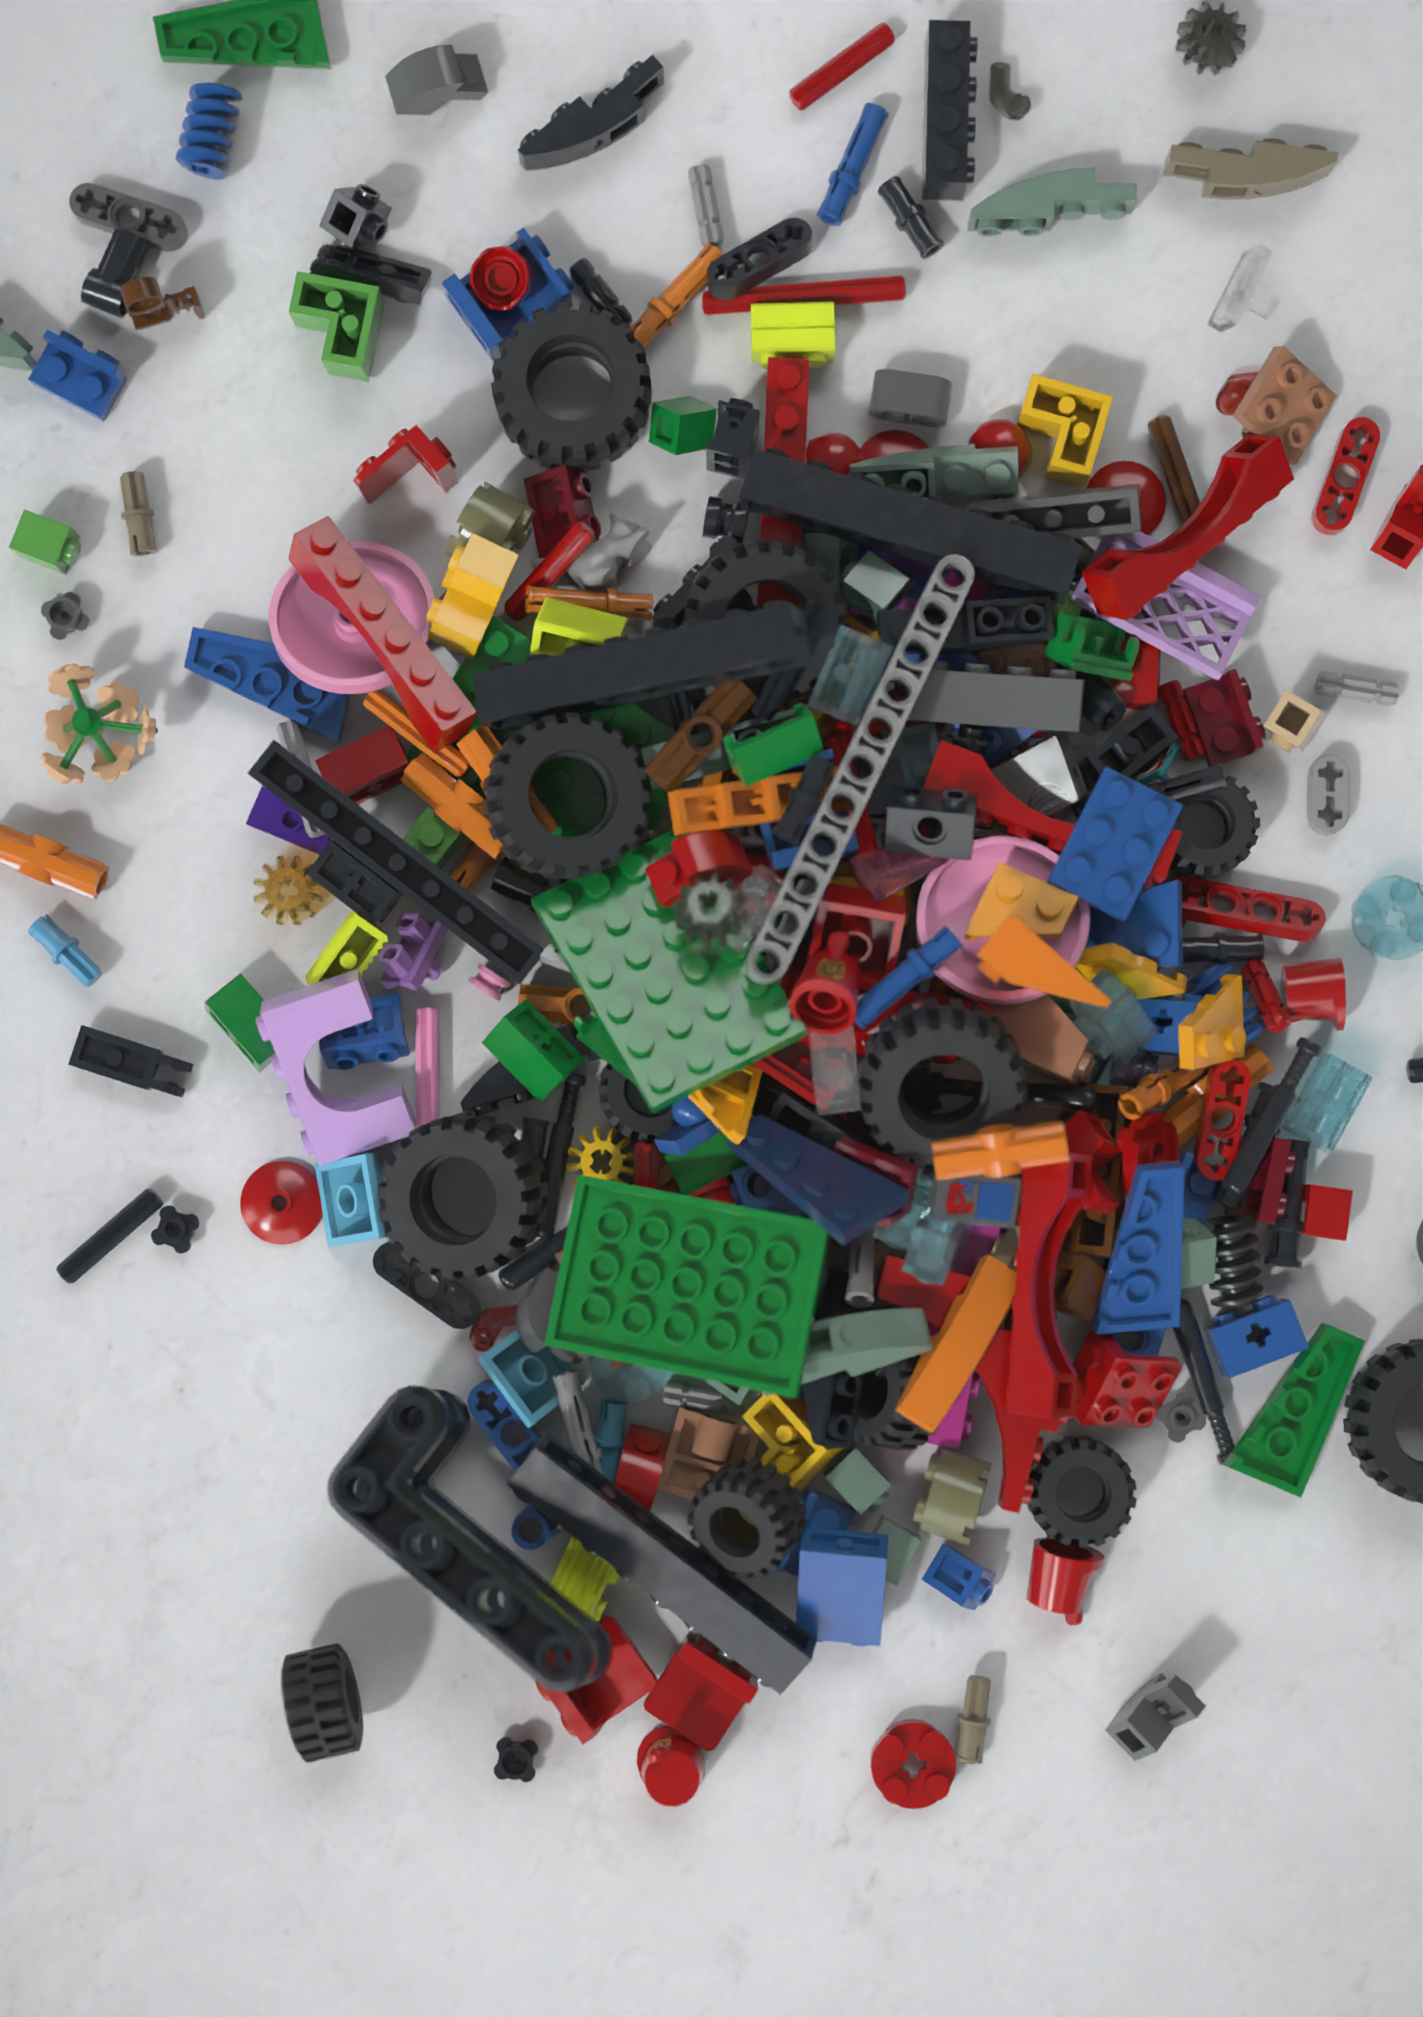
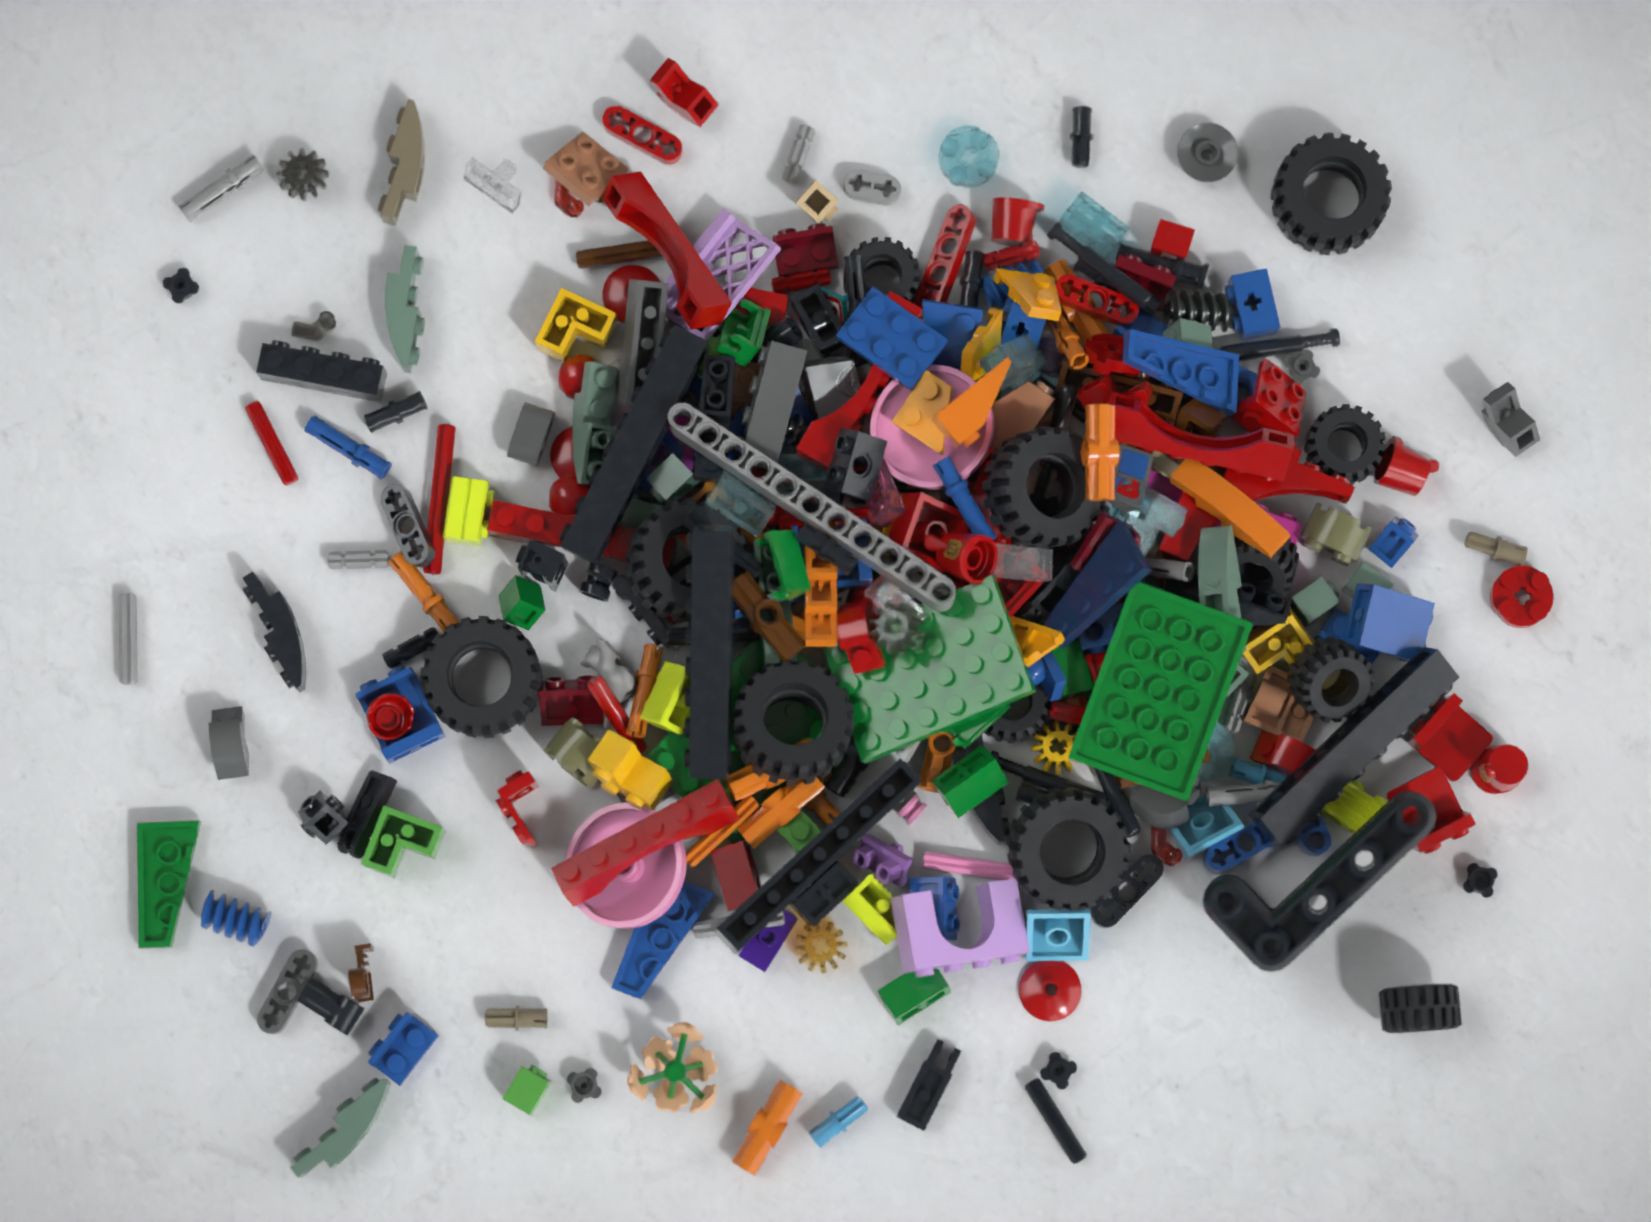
camera: 85 degrees left, 5 degrees down
(1295, 1420) = (1315, 286): green wing -> none

